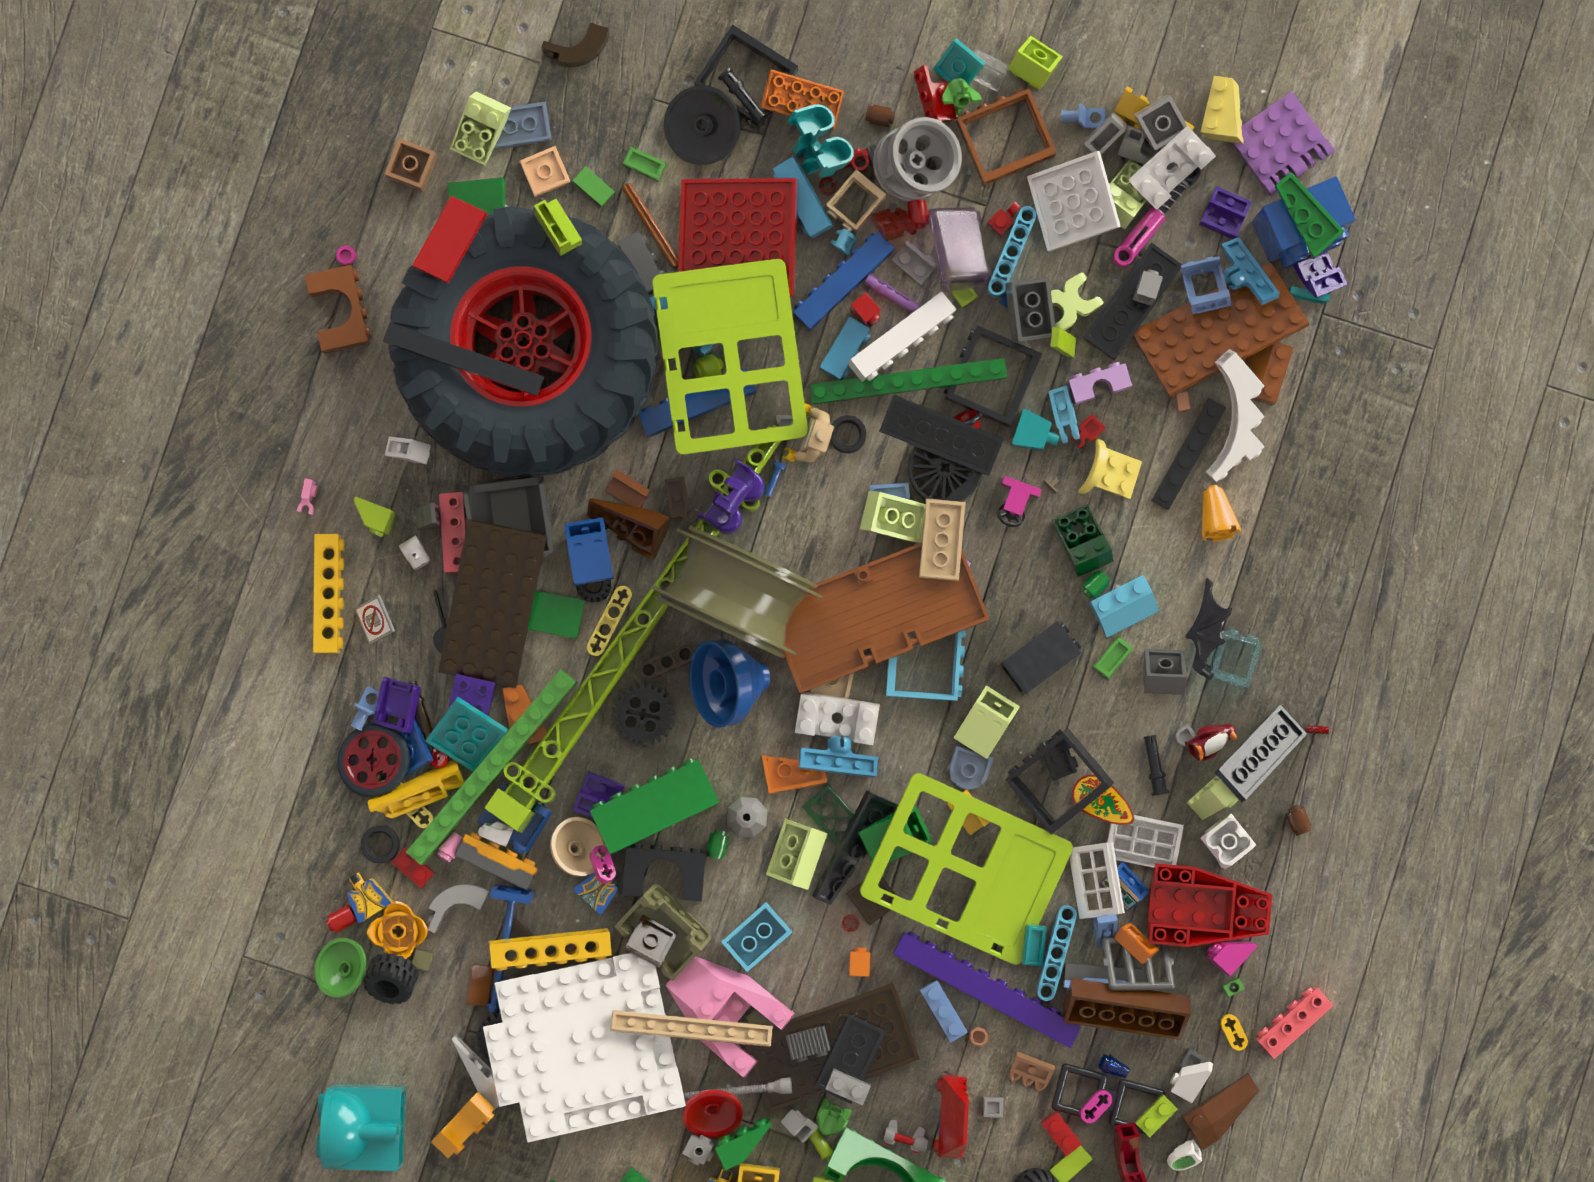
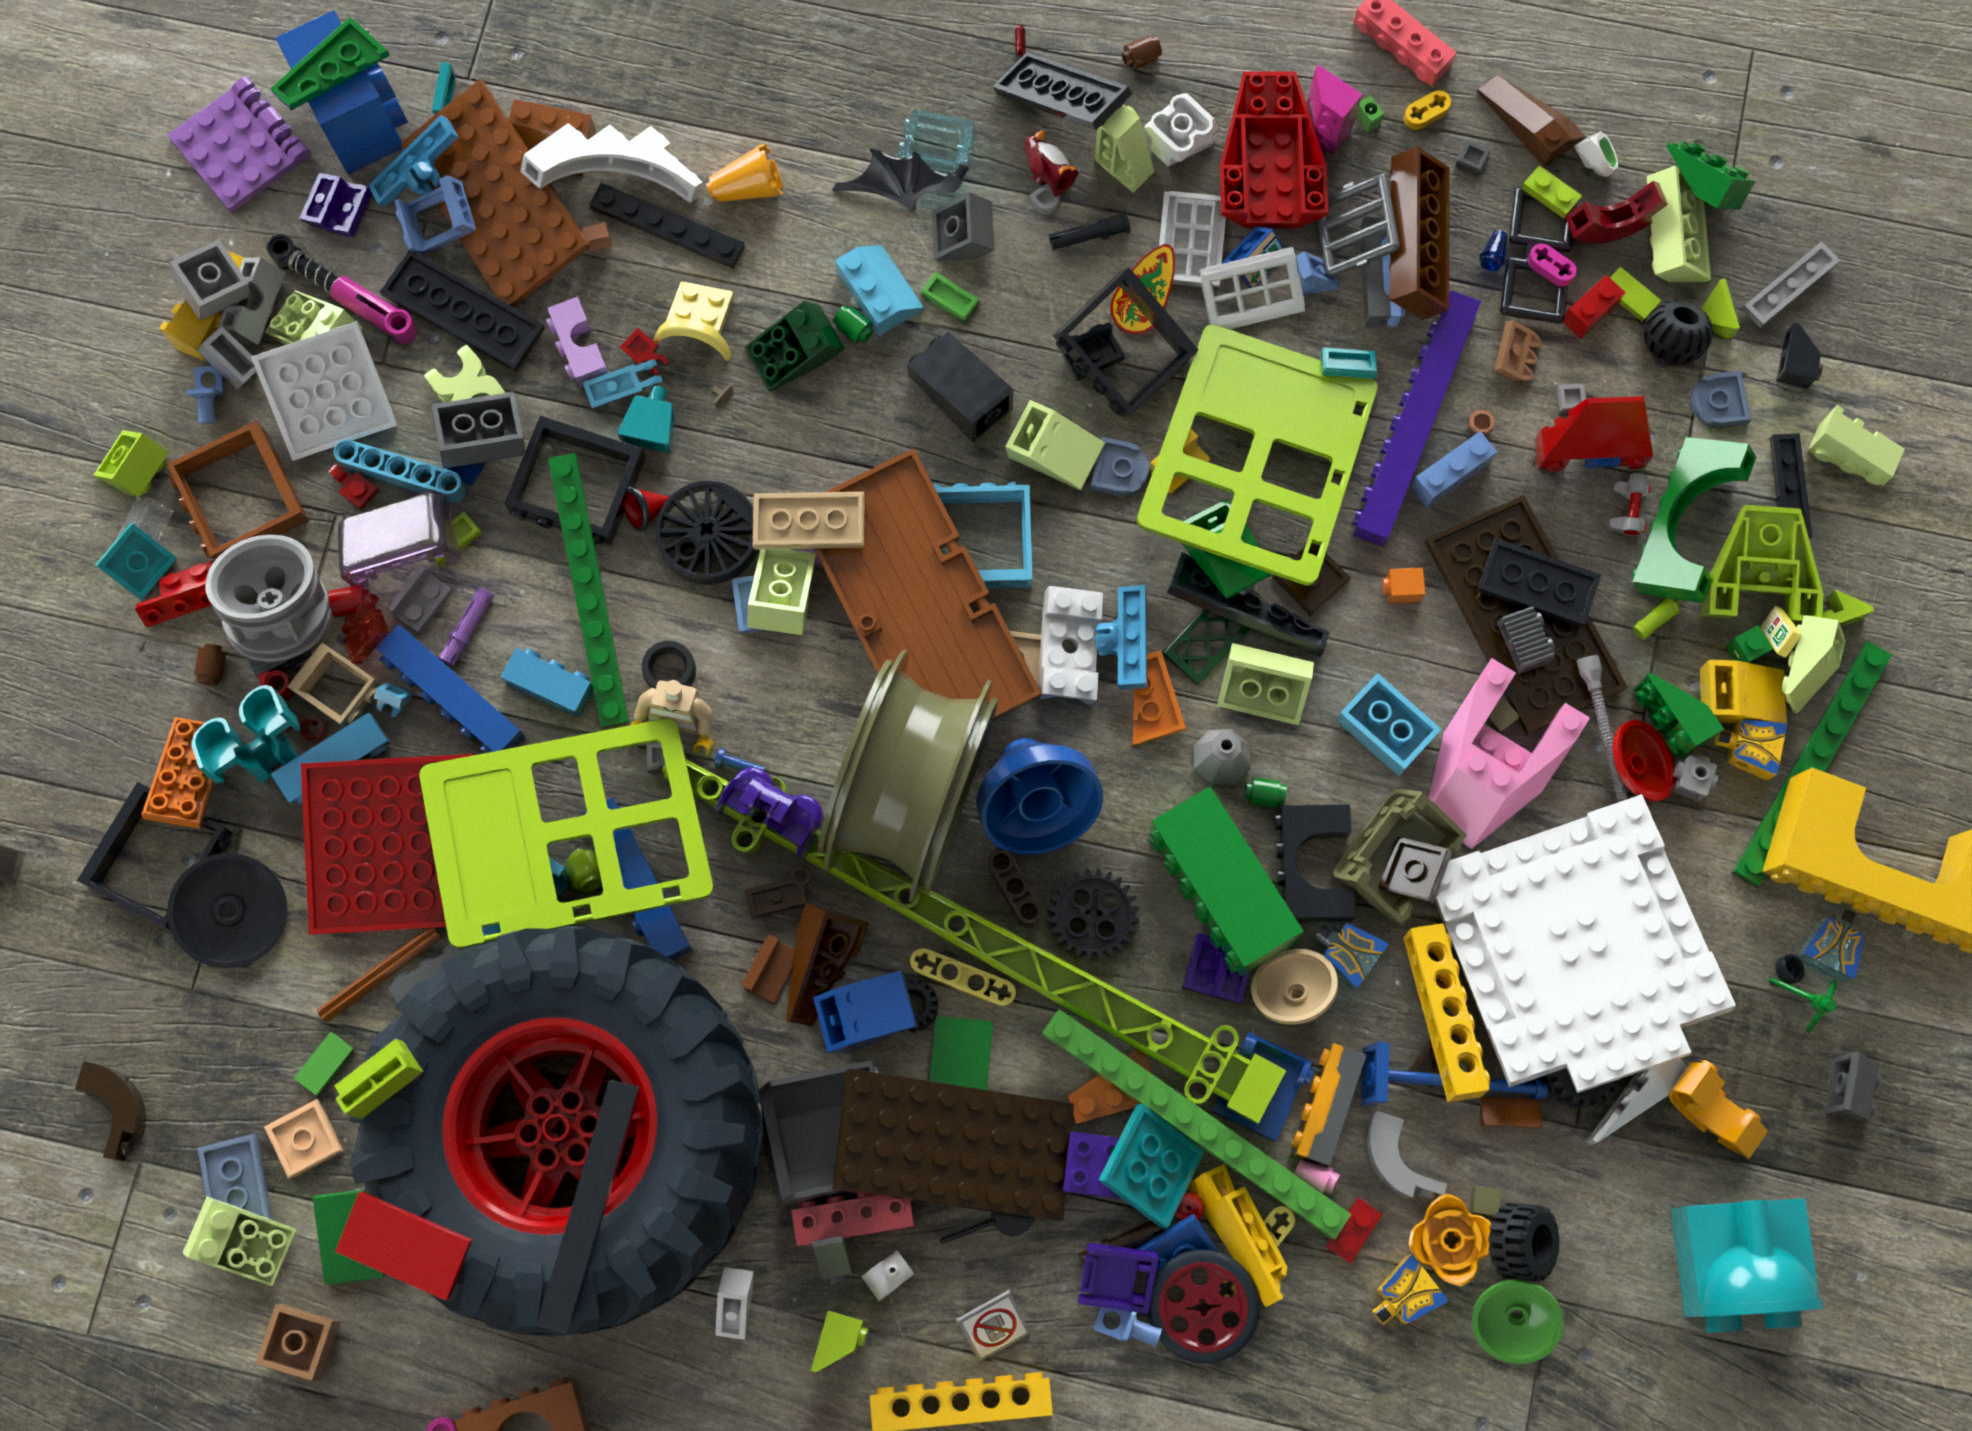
camera: 95 degrees left, 10 degrees down
(341, 919) = (1444, 1329): red brick -> none
(365, 844) = (1348, 1278): black tyre -> none
(496, 832) = (1289, 1107): white rock -> none
(600, 865) = (1316, 948): dark pink beam -> none
(644, 163) = (288, 993): bright green tile -> none
(691, 1028) = (1533, 797): tan tile -> none
(736, 87) = (170, 863): black pin -> none
(799, 1125) = (1639, 644): light grey window -> none
(832, 1118) = (1622, 601): bright green brick -> none
(847, 1086) = (1580, 576): light grey piece -> none
(851, 929) = (1342, 604): clear red bush -> none
(866, 310) = (490, 654): red brick -> none
(901, 337) = (526, 603): white brick -> none
(941, 435) = (661, 534): black plate -> none
(959, 94) = (176, 553): bright green brick -> none
(1016, 501) = (745, 433): dark pink piece -> none
(1057, 963) = (1366, 327): medium azure beam -> none
(1063, 342) = (521, 386): lime tile -> none
(1135, 943) = (1330, 231): orange slope -> none
(1147, 287) = (441, 282): light grey piece -> none
(1154, 179) = (251, 244): white piece -> none
(1190, 1080) = (1499, 150): white slope -> none
(1223, 112) = (200, 211): light yellow wedge -> none
(1320, 275) = (417, 78): slope -> none

